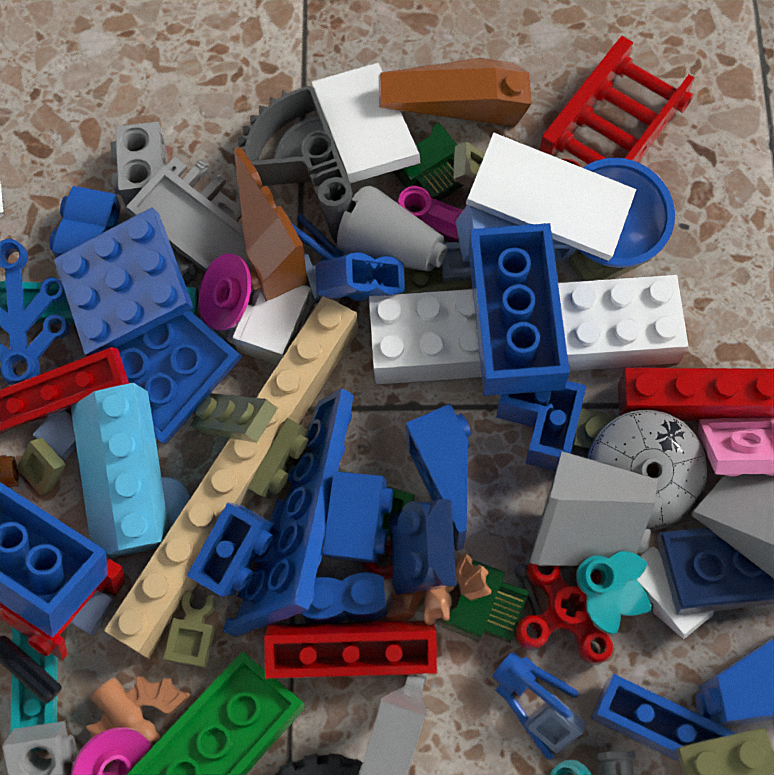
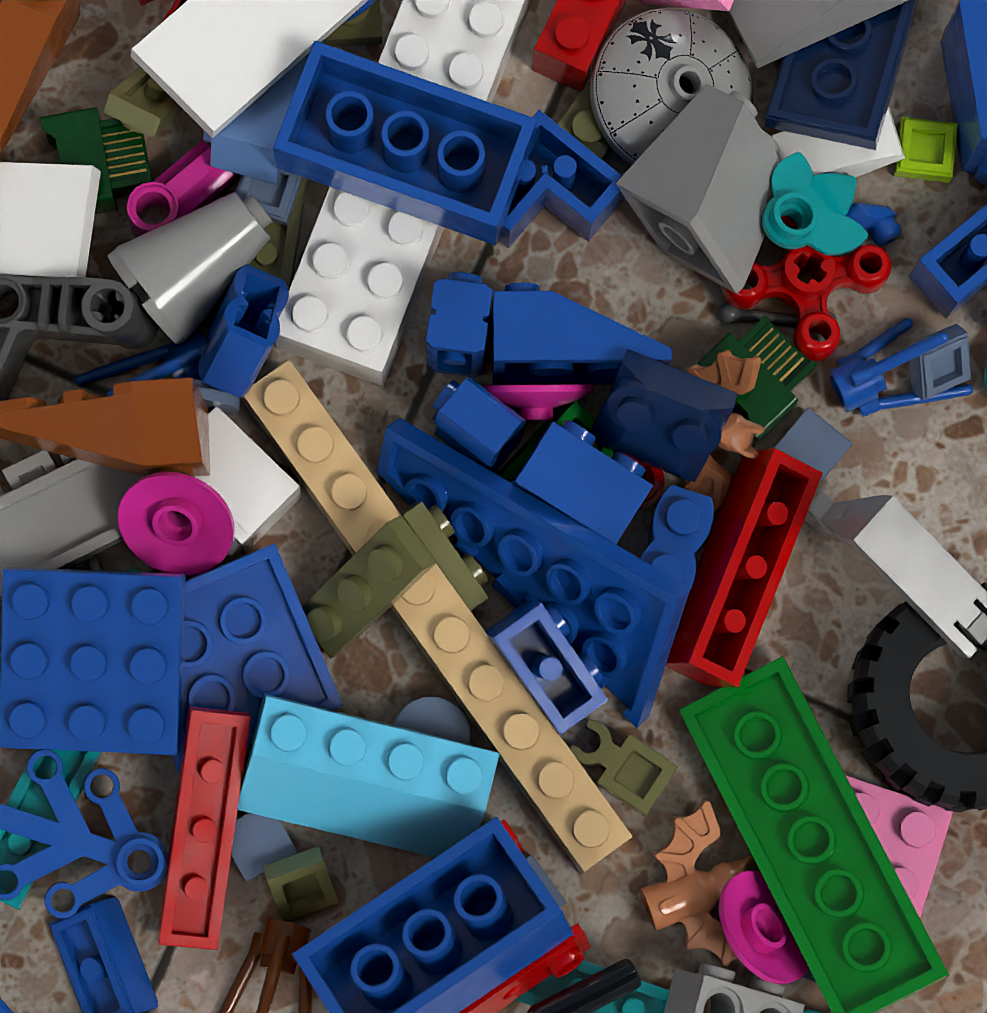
camera: 75 degrees left, 10 degrees up
(367, 439) = (477, 423): none -> blue brick
(403, 469) = (538, 401): none -> dark pink dish
(425, 393) = (458, 325): none -> blue brick
(457, 664) = (814, 443): none -> sand blue tile
(633, 640) = (877, 220): none -> blue arm
(699, 653) = (927, 149): none -> lime tile

